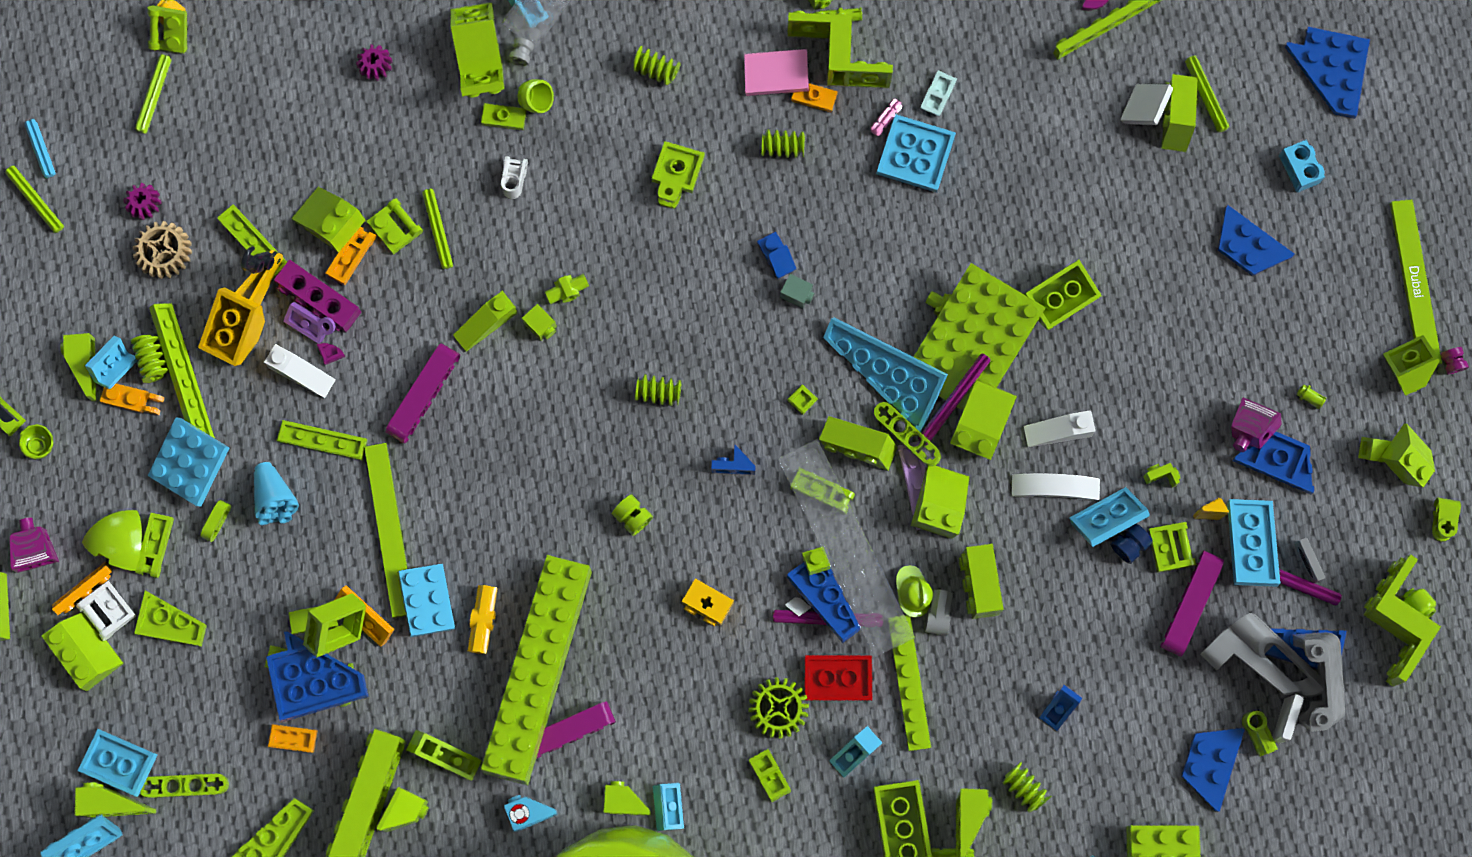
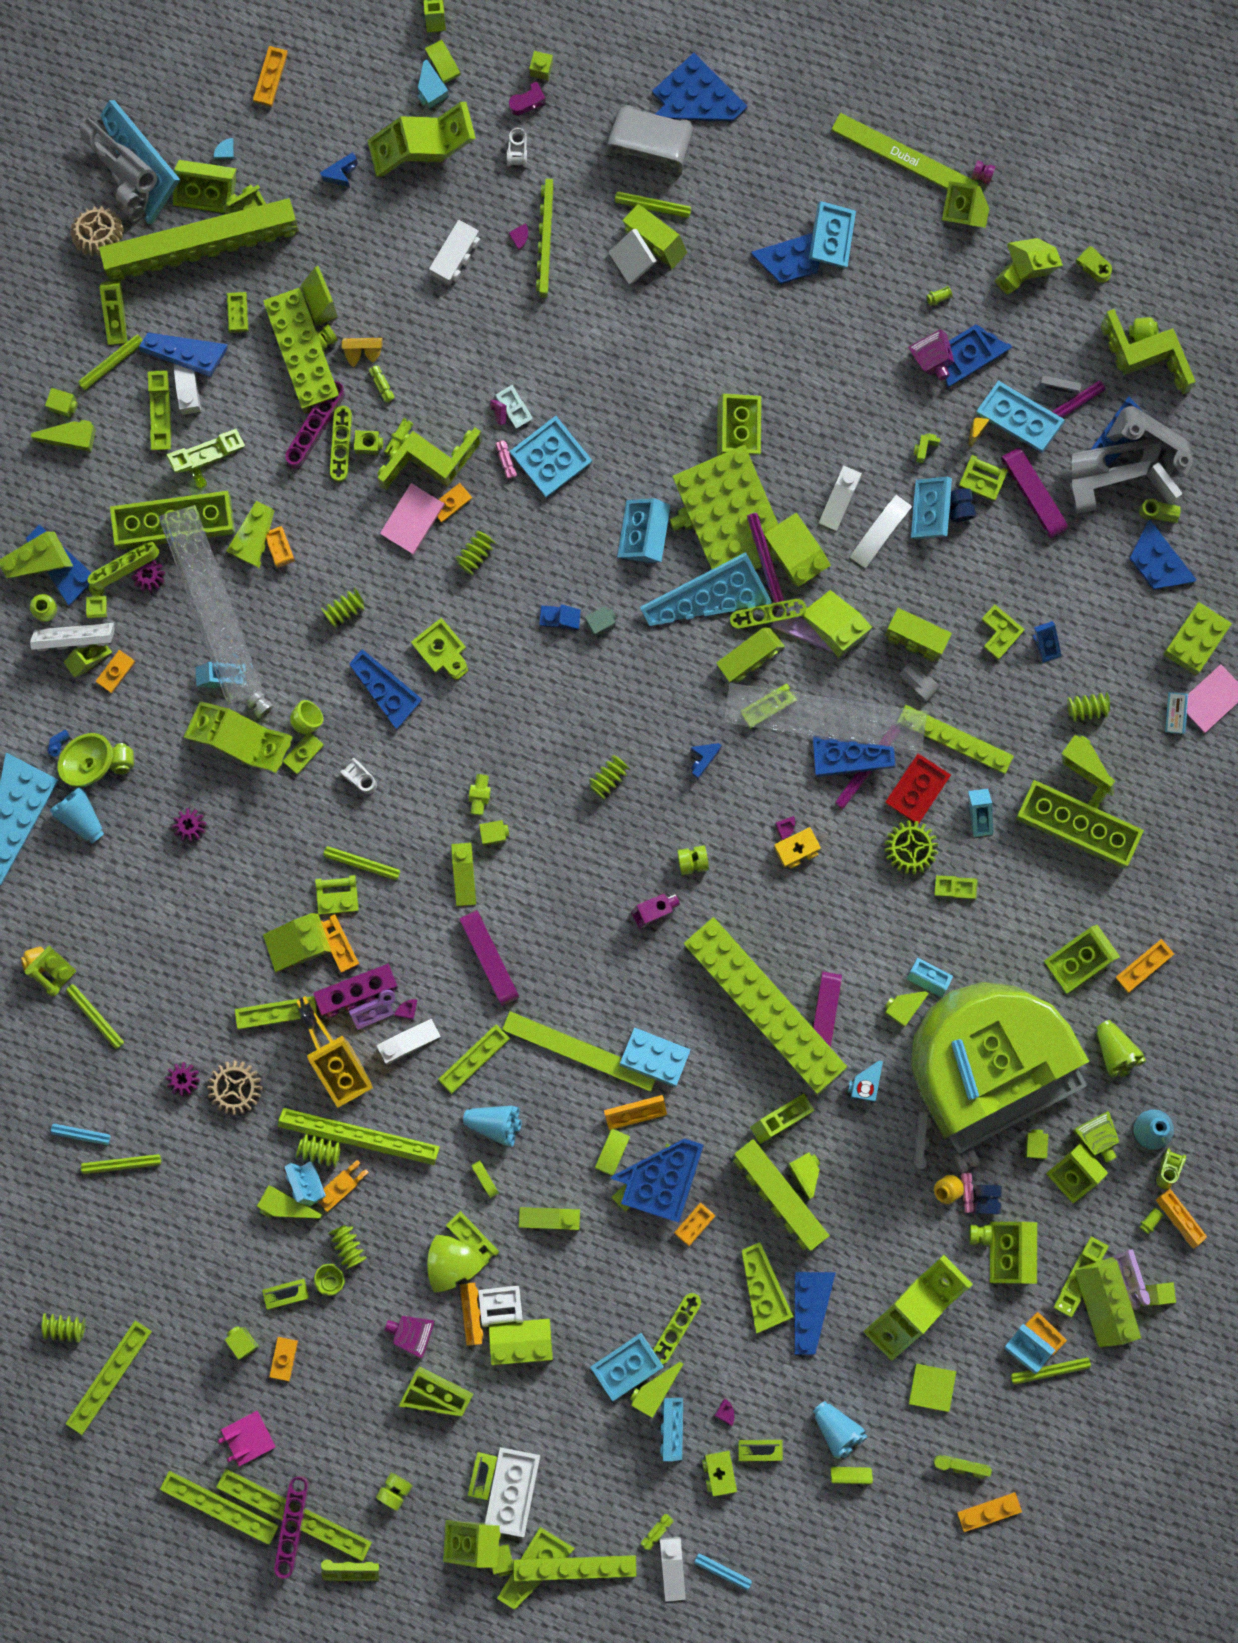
camera: 55 degrees left, 5 degrees up
(77, 438) = (348, 1247): none -> lime piece
(167, 622) = (541, 1264): lime wing -> none
(188, 461) = (426, 1170): medium azure plate -> none
(216, 604) = (549, 1218): none -> lime slope
(320, 639) = (633, 1135): lime window -> none
(482, 619) = (698, 1024): yellow piece -> none
(553, 506) = (648, 913): none -> magenta torso
(607, 153) = (387, 690): none -> blue wing
(720, 580) = (785, 827): none -> magenta tile
(798, 606) = (844, 782): white sticker -> none
(802, 399) = (687, 673): lime tile -> none
(815, 561) = (820, 746): lime plate -> none
(906, 276) = (644, 530): none -> medium azure slope
(913, 591) = (890, 690): lime piece -> none
(925, 84) = (500, 411): none -> magenta tile
(1043, 663) = (1006, 631): none -> lime plate
(1265, 51) = (650, 137): none -> light grey windscreen
(1296, 167) = (758, 180): medium azure brick -> none
(1296, 264) = (832, 234): none -> medium azure plate

